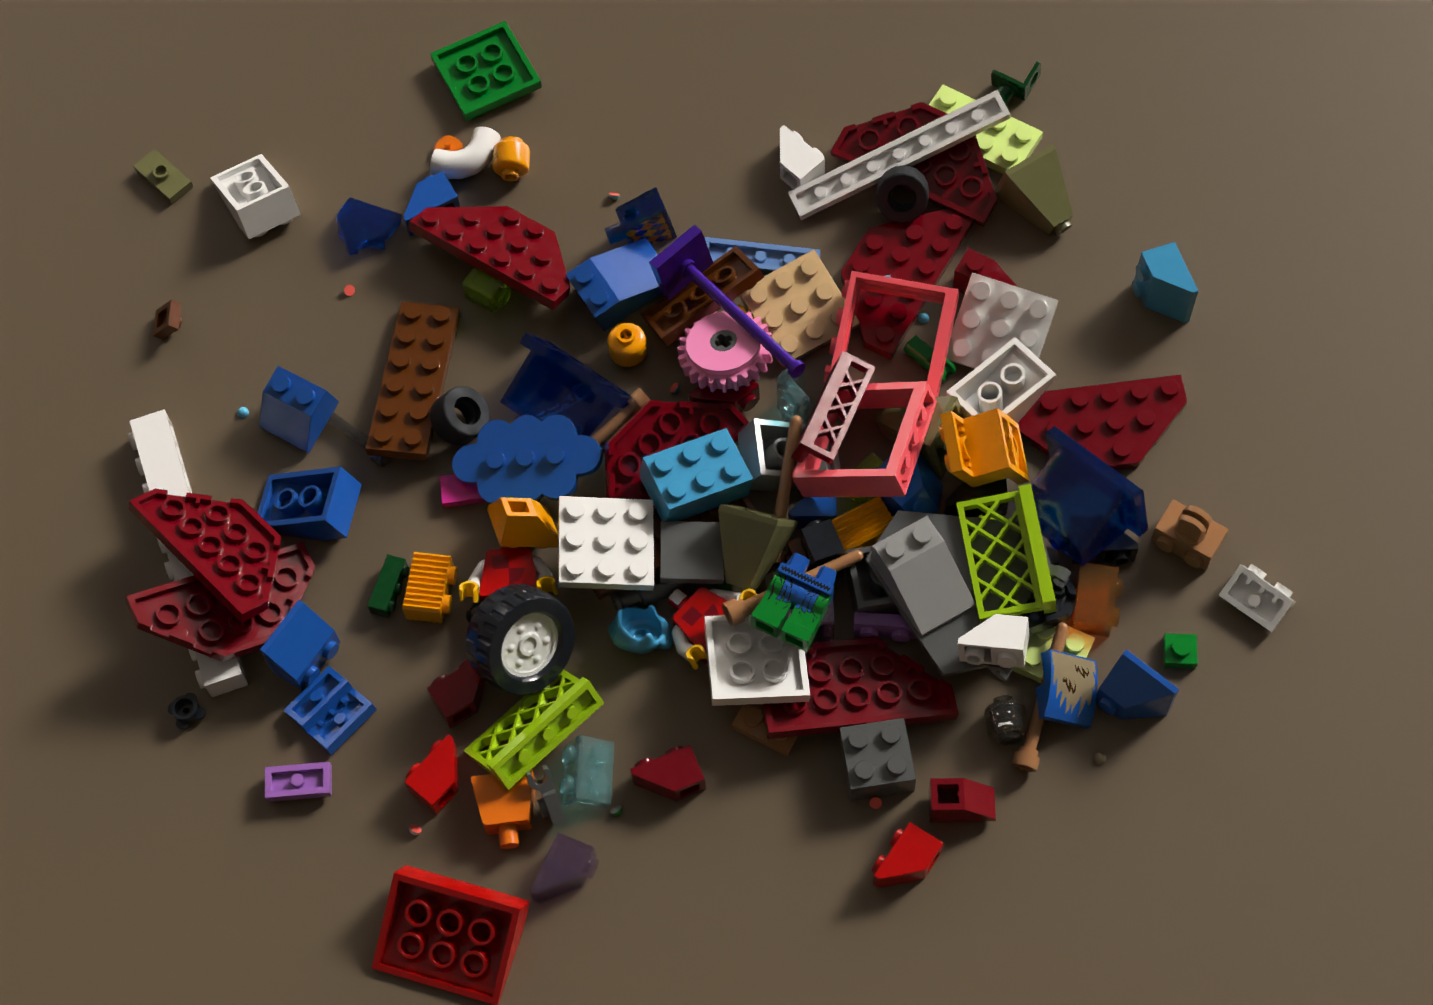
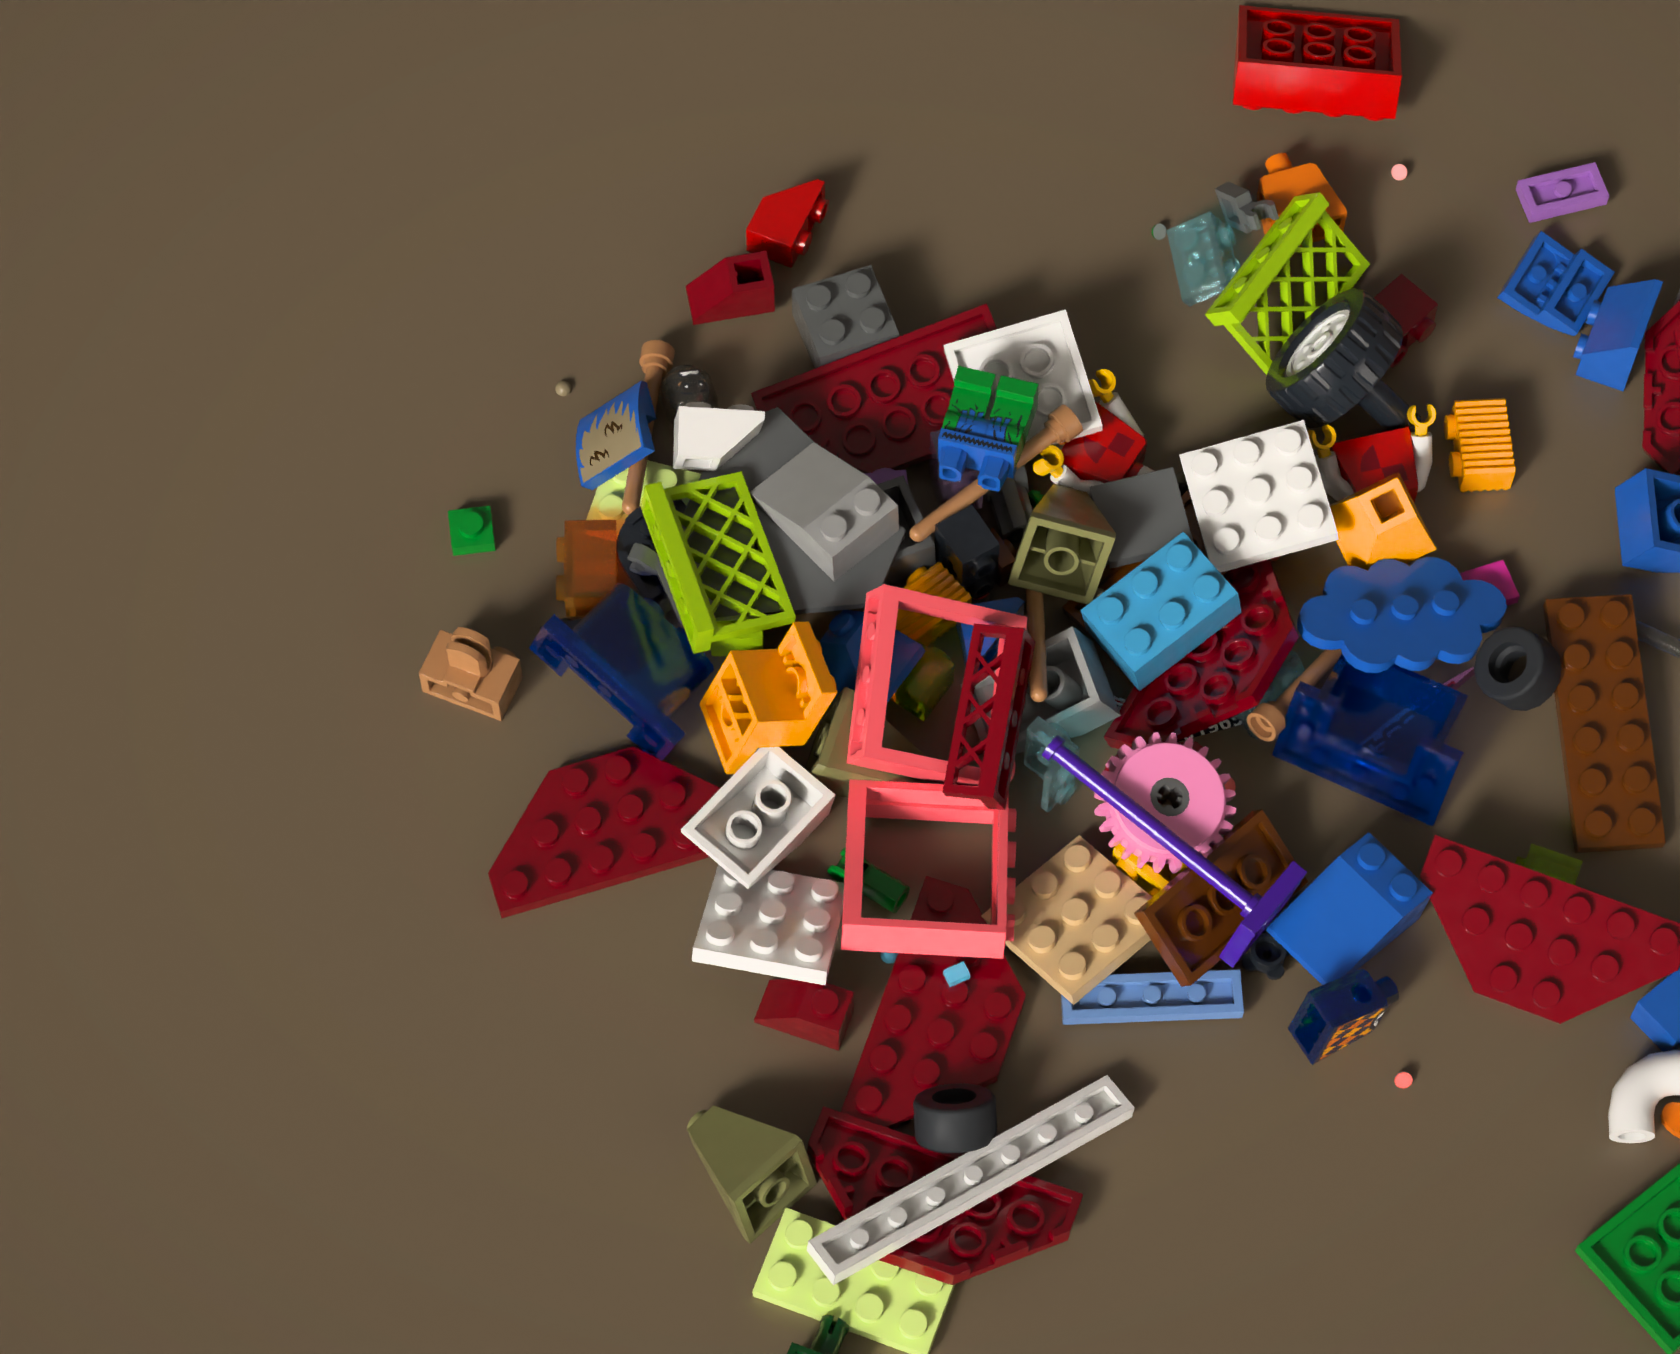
camera: 165 degrees right, 0 degrees up
(388, 586) = (1536, 443): dark green piece -> none
(436, 778) = (1391, 219): red slope -> none
(511, 158) = (1579, 1095): light orange head -> none
(564, 868) = (1200, 147): clear purple slope -> none
(627, 344) = (1312, 817): light orange head -> none
(640, 630) = (1183, 425): dark azure hair -> none
(671, 775) = (1099, 268): dark red slope -> none
(798, 160) = (1132, 1168): white slope -> none
(1135, 690) = (525, 449): blue slope -> none
(1165, 282) = (538, 1030): dark azure slope -> none
(1257, 597) = (370, 611): white bracket -> none

